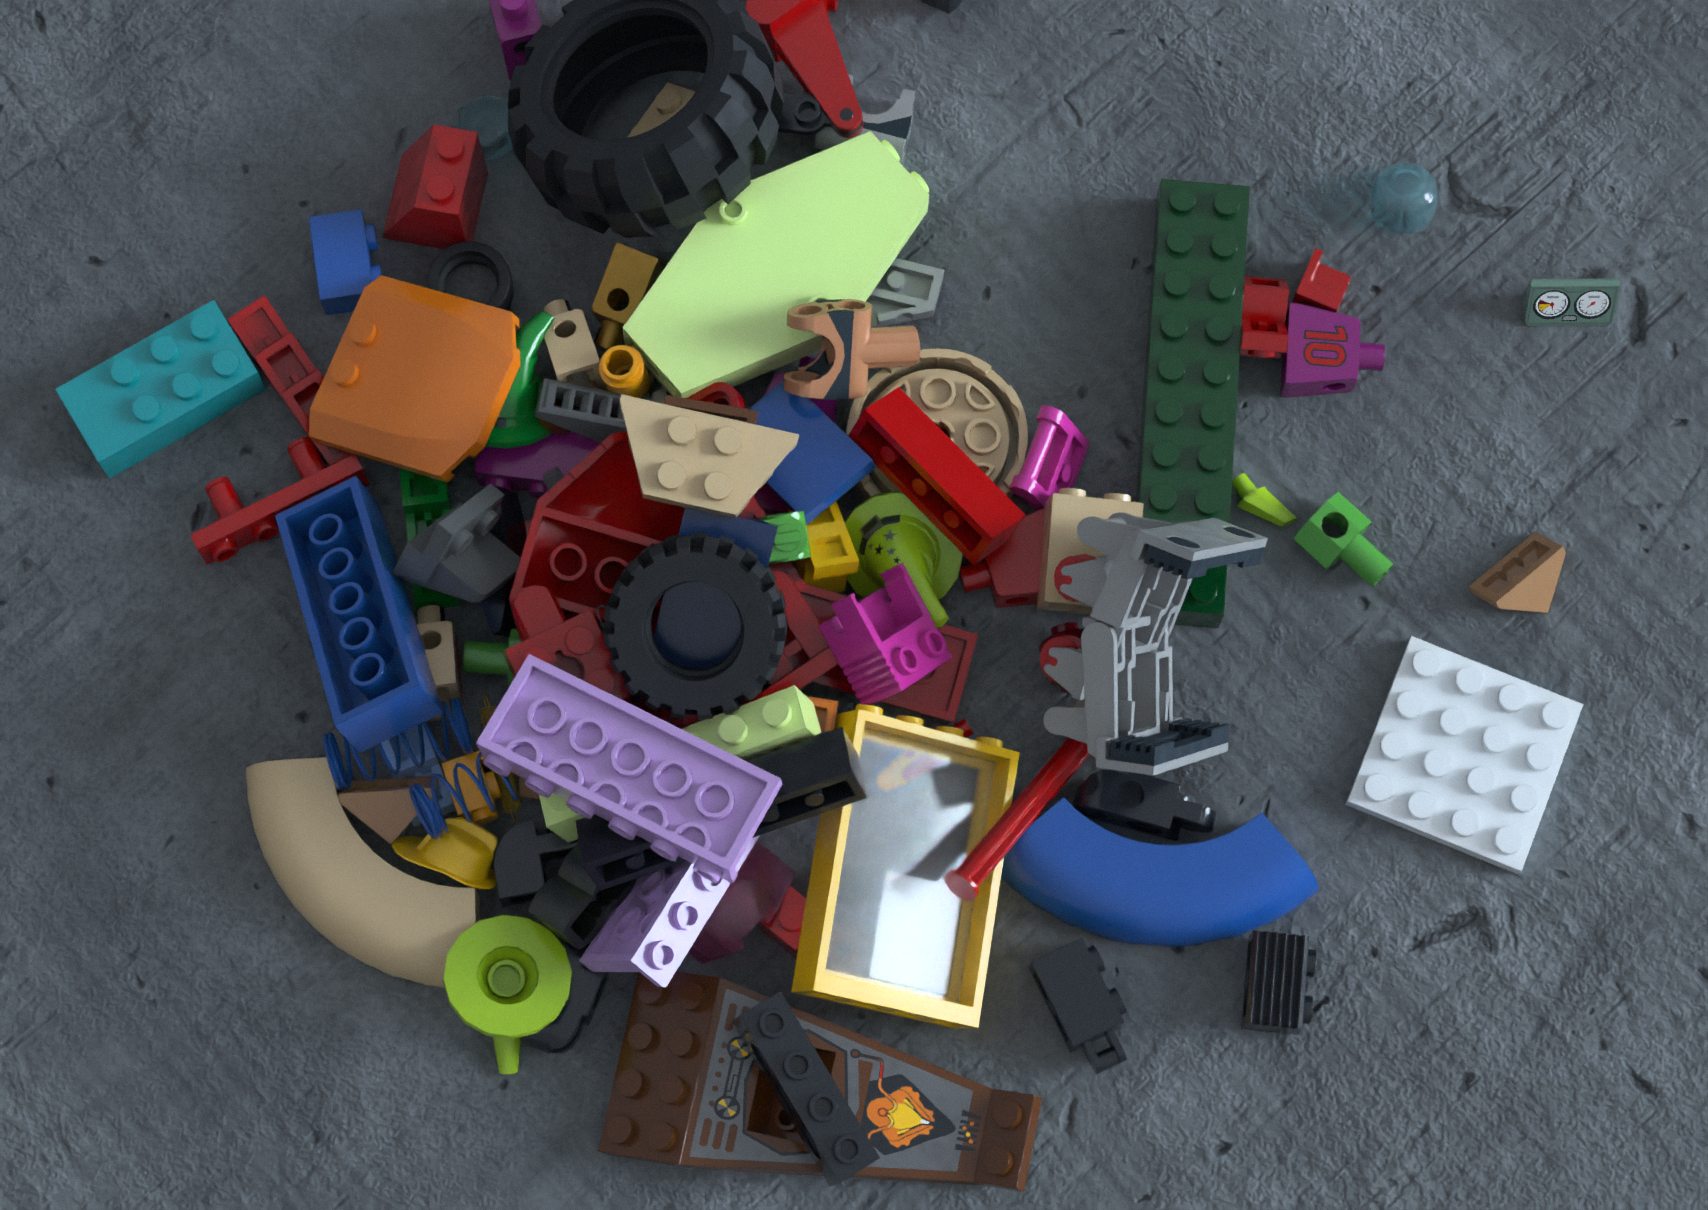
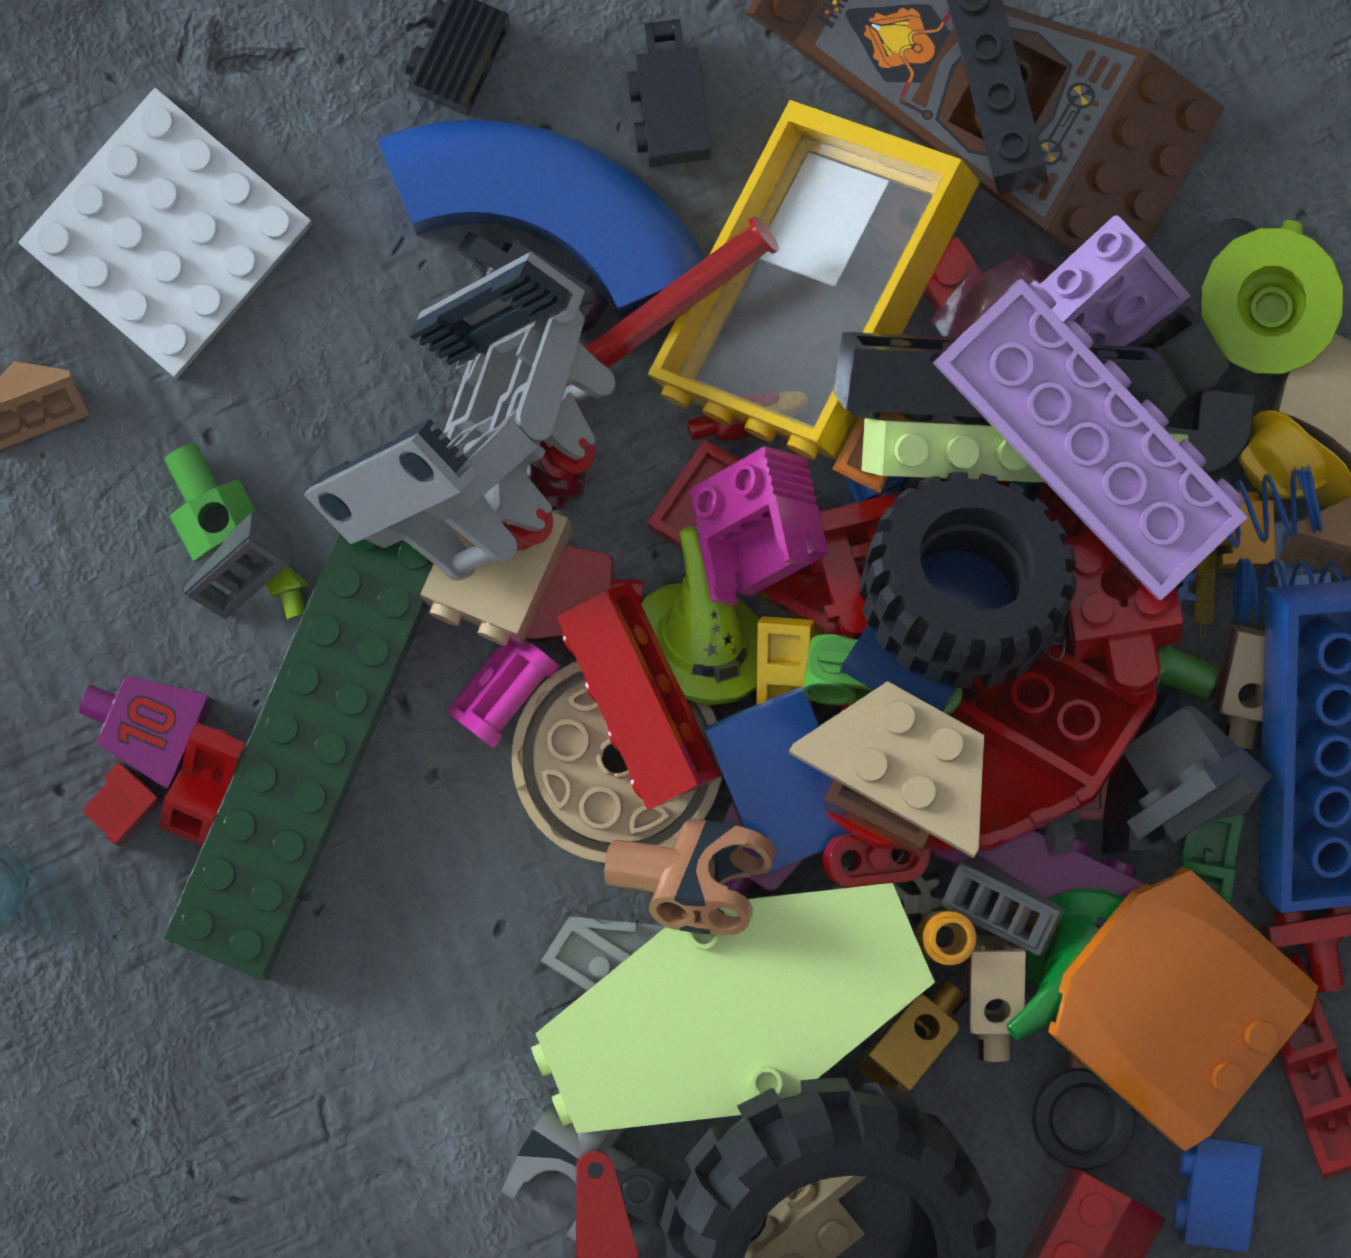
camera: 160 degrees left, 10 degrees up
(1295, 502) = (258, 540): none -> dark grey slope

